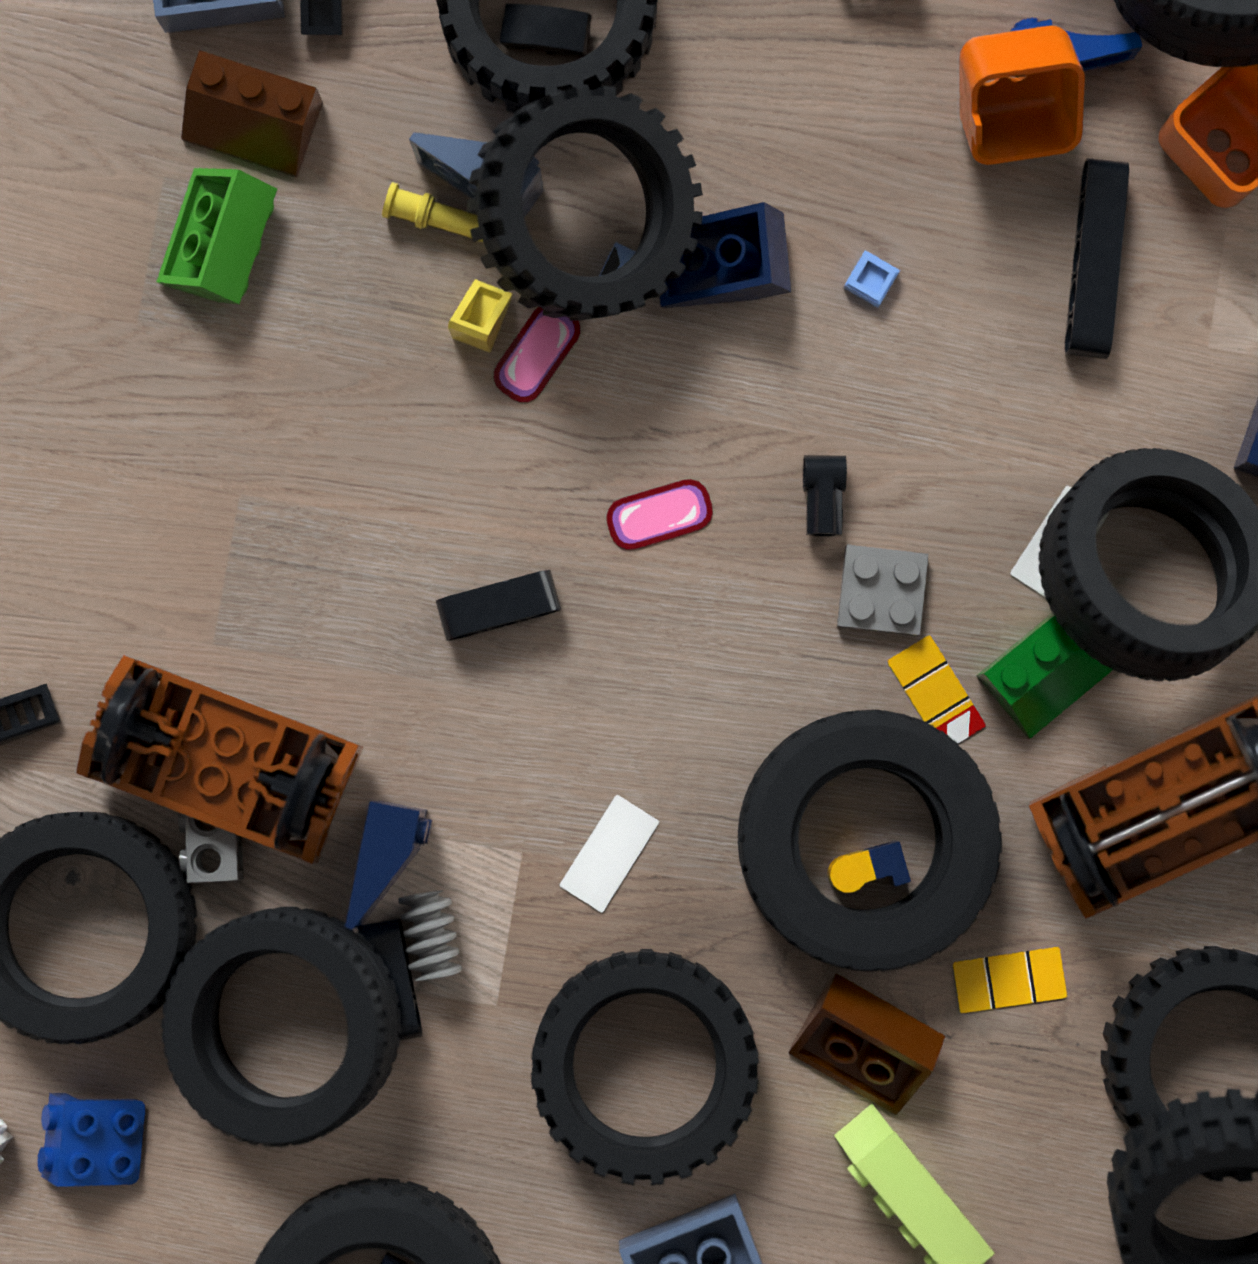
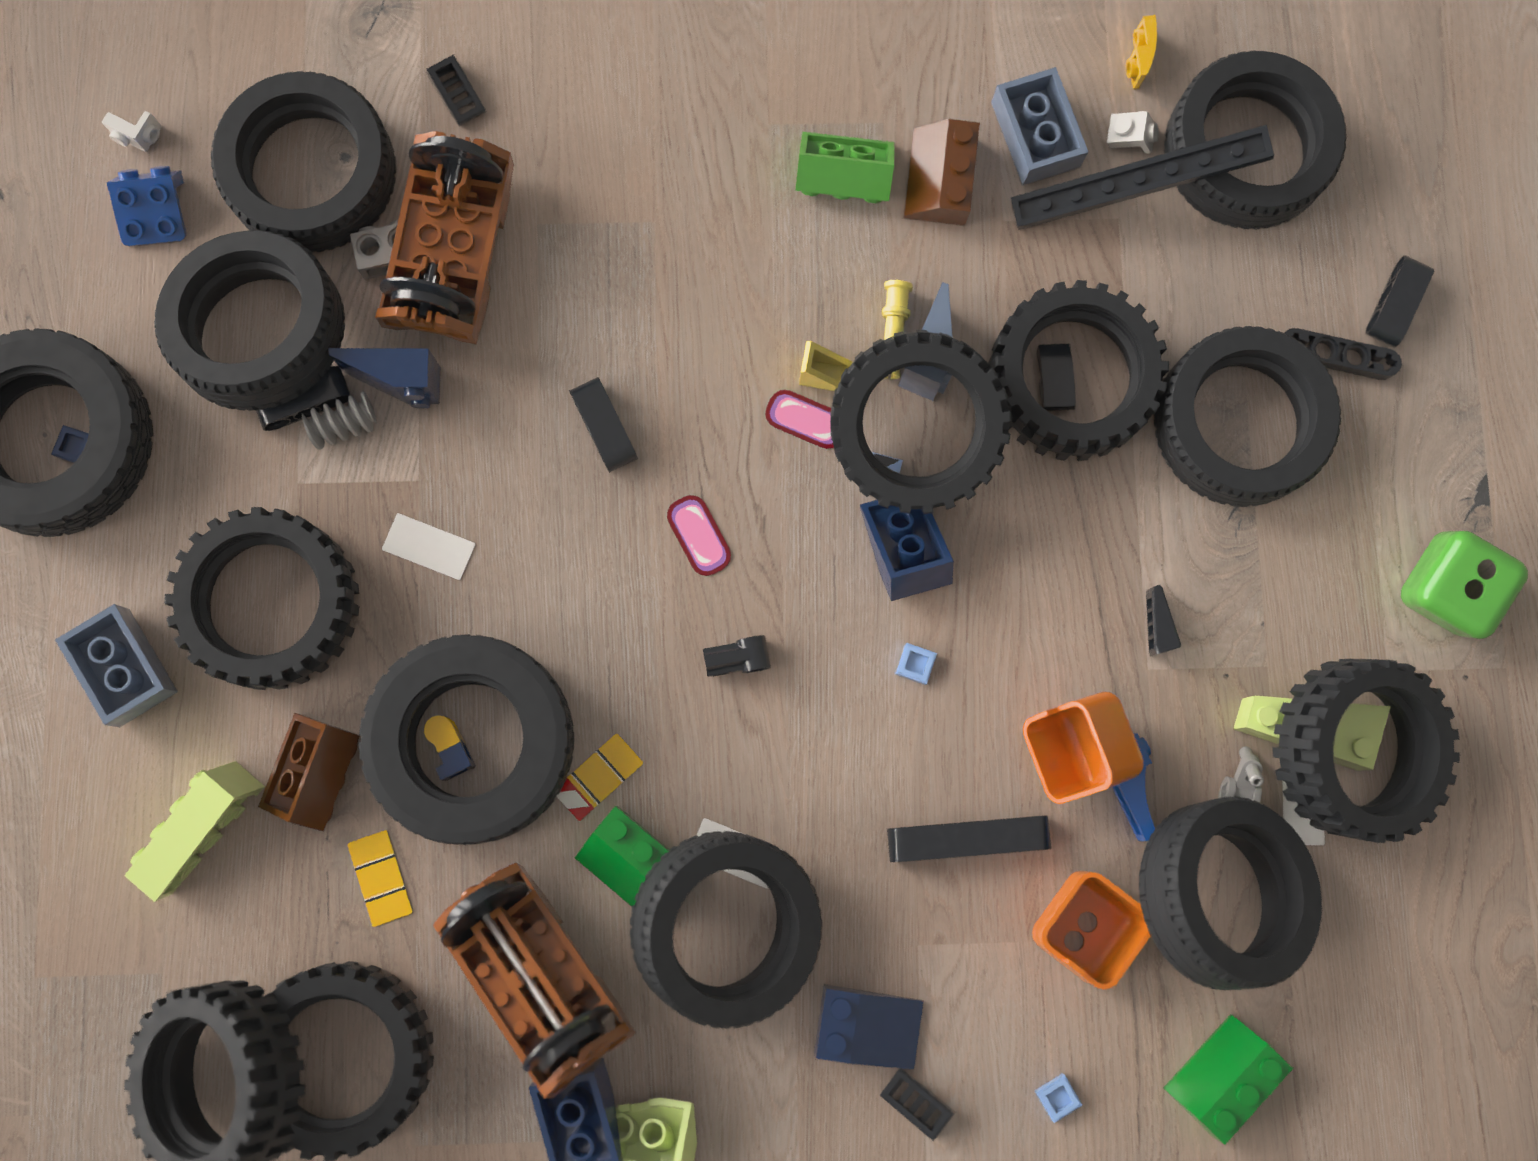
camera: 70 degrees right, 5 degrees down
(882, 590) = (670, 718): light grey plate -> none

